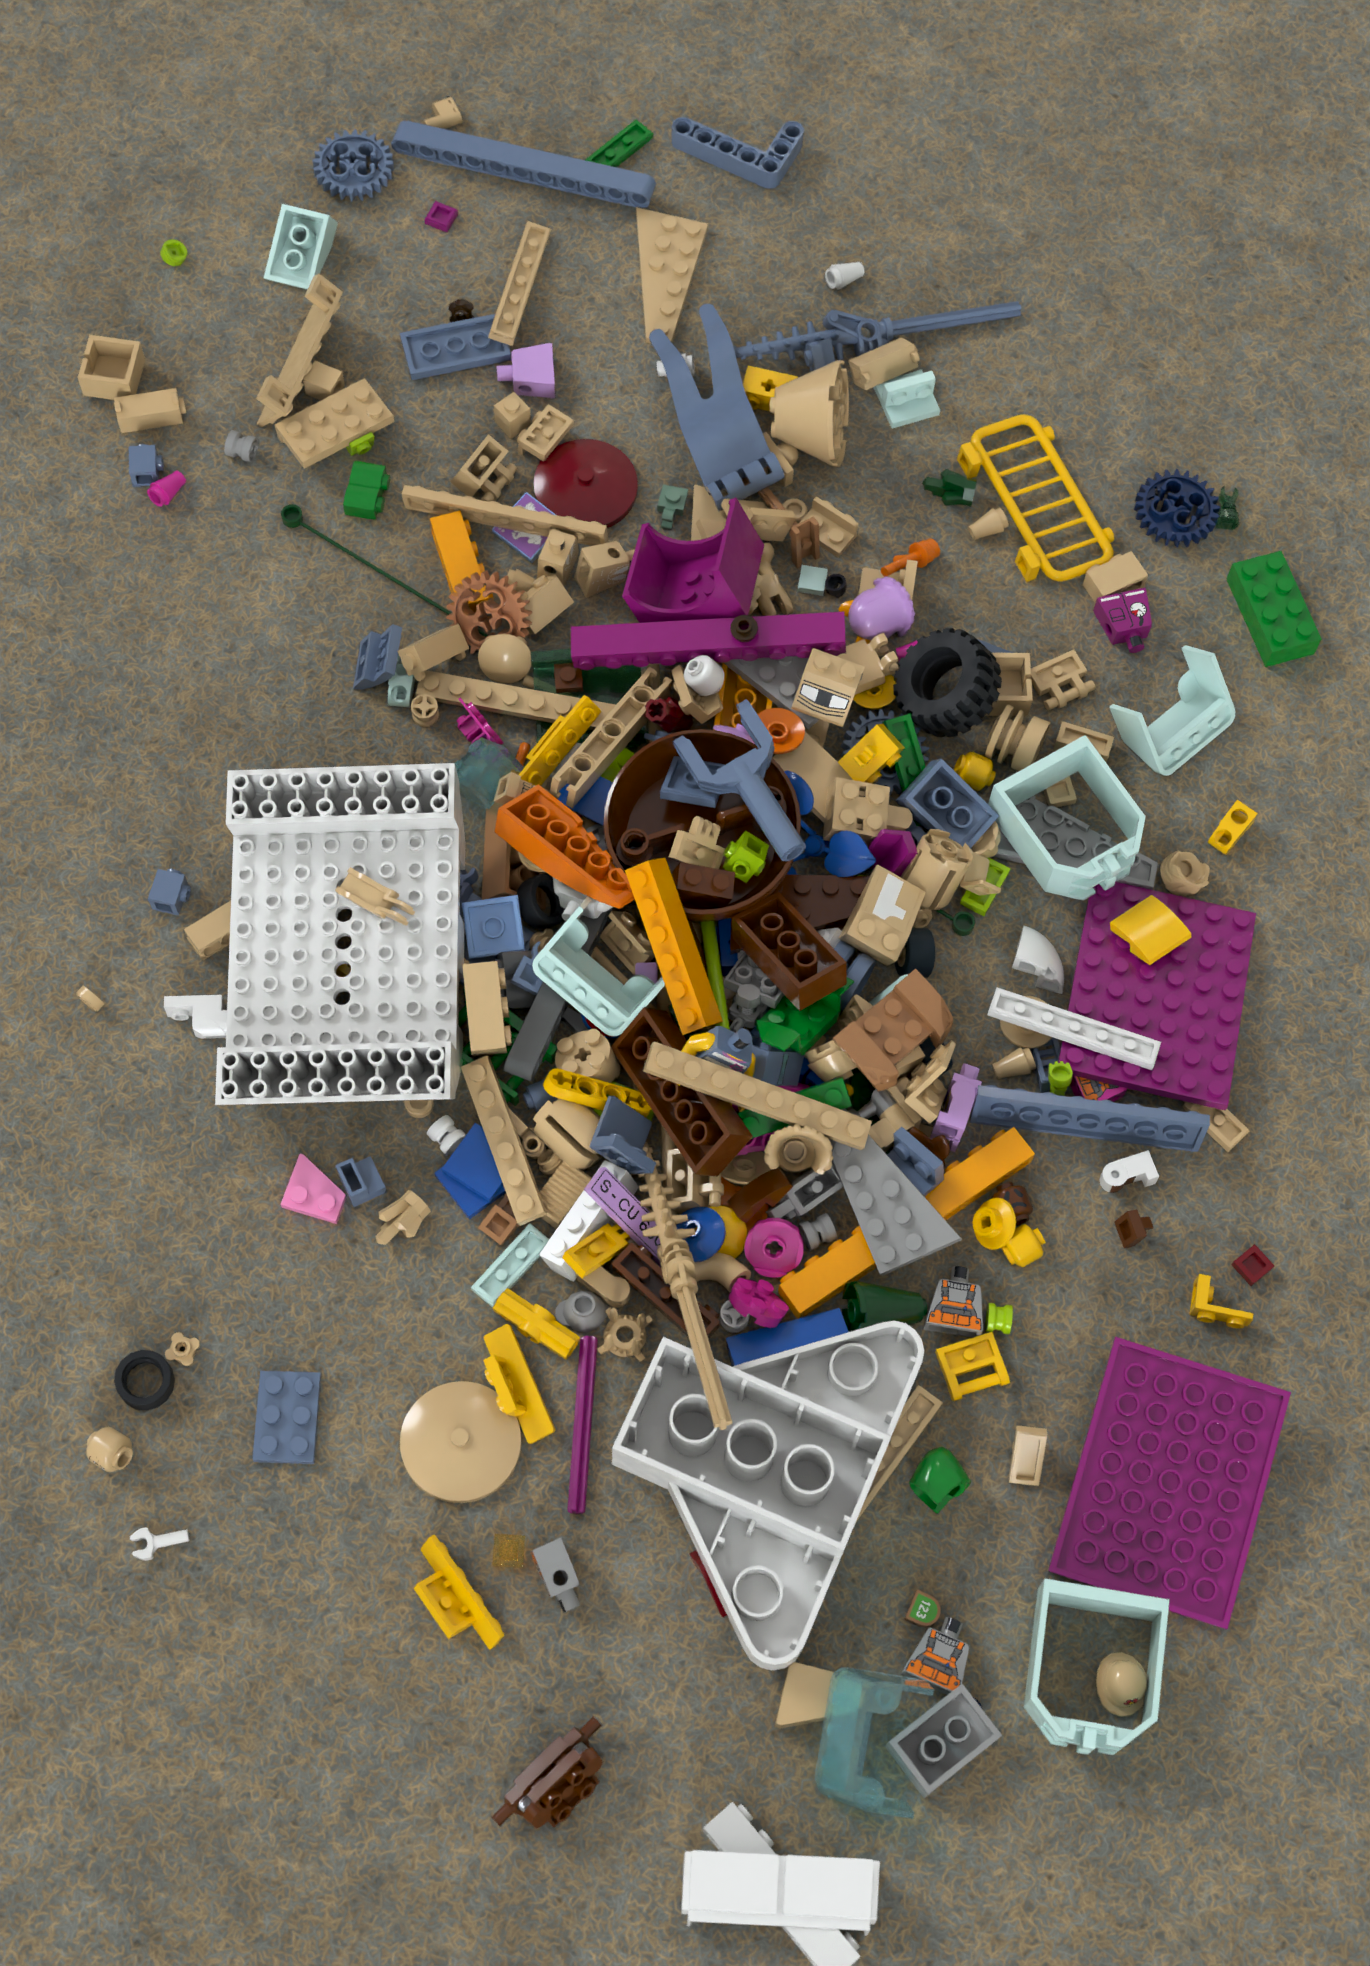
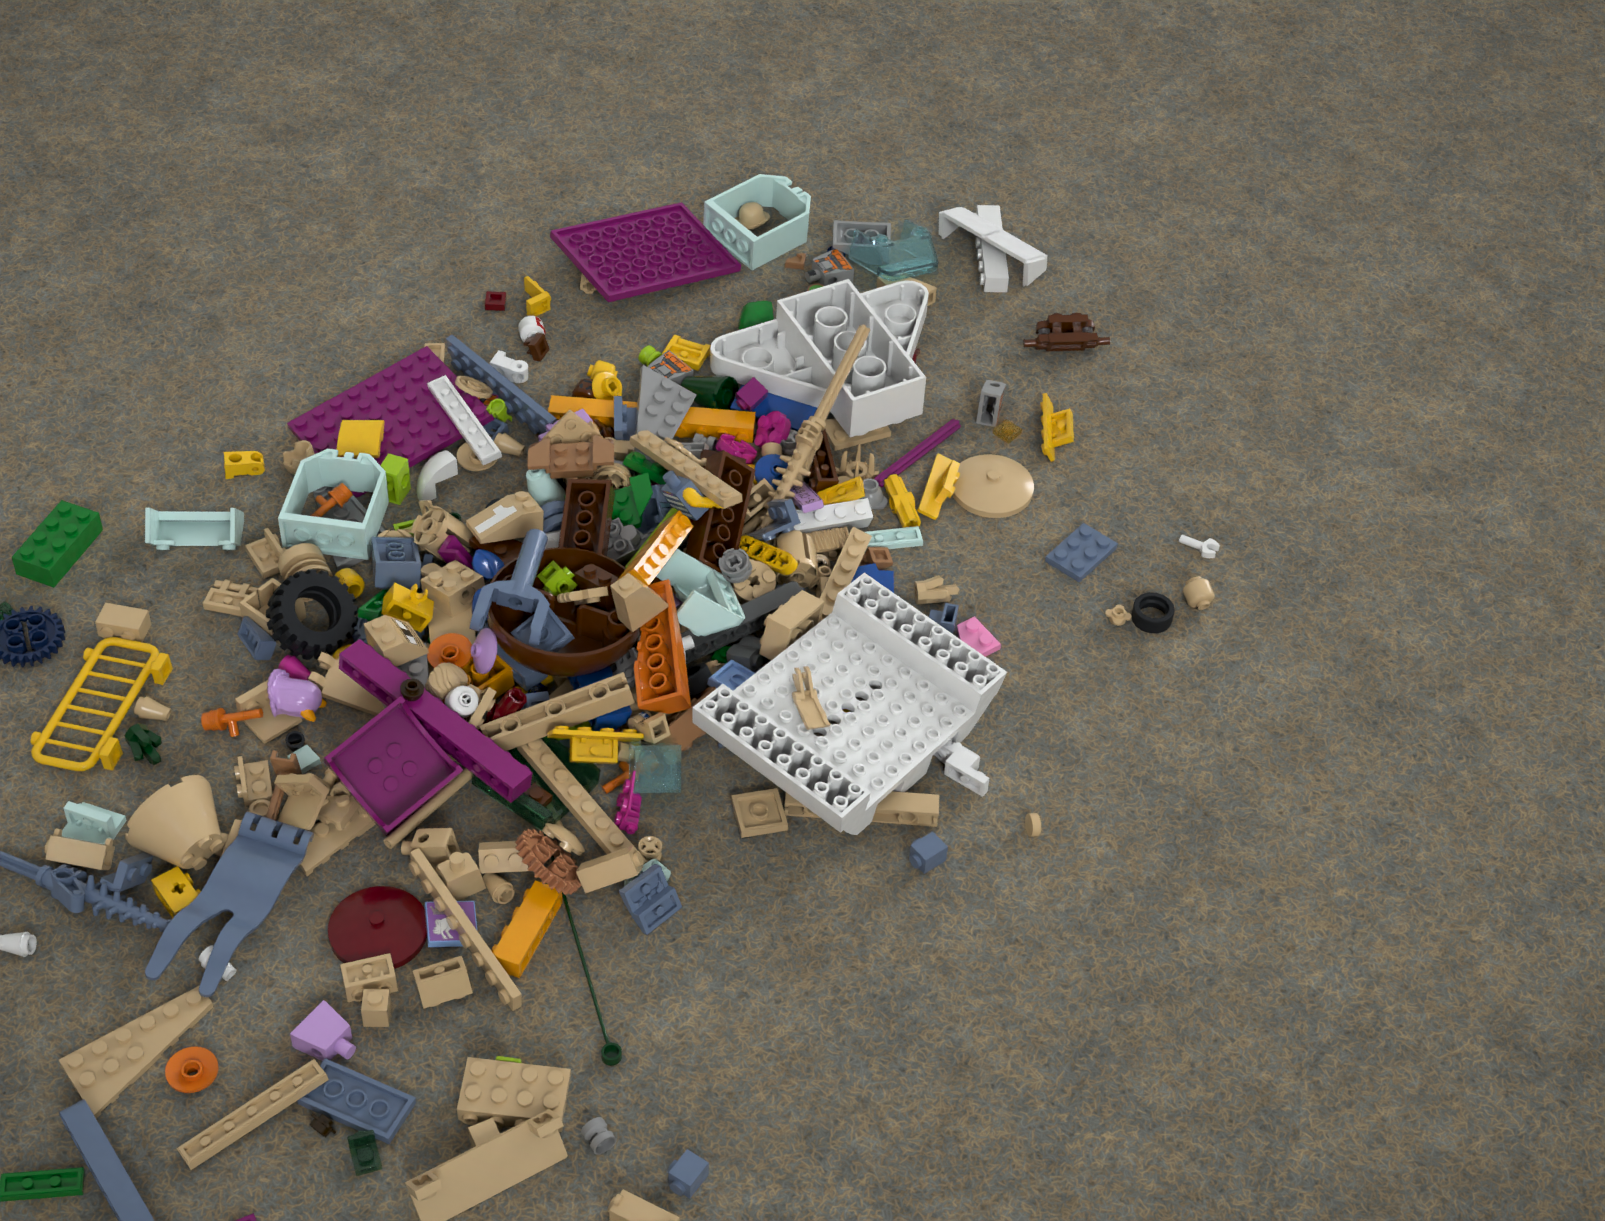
camera: 140 degrees left, 20 degrees down
(164, 489) = (690, 1140): dark pink cone -> none
(365, 490) = (539, 1032): green brick -> none
(409, 317) = (364, 1152): none -> clear green bracket
(524, 975) = (741, 635): sand blue plate -> none
(601, 272) = (188, 1061): none -> orange dish
(606, 1035) = (735, 565): none -> light grey wheel
(615, 838) = (635, 602): none -> tan slope
(671, 503) = (335, 873): sand green plate -> none
(740, 685) = (444, 679): none -> tan hair
(818, 1318) = (751, 395): none -> magenta brick
(998, 1650) = (796, 262): none -> medium nougat tile
(1027, 1455) = (700, 303): tan tile -> none
(1063, 911) = (397, 477): none -> lime brick
(1090, 838) = (338, 496): none -> orange piece
(1113, 1081) = (473, 387): none -> tan wheel
(1125, 618) = (148, 595): magenta torso -> none
(1165, 1249) = (530, 326): none -> white head

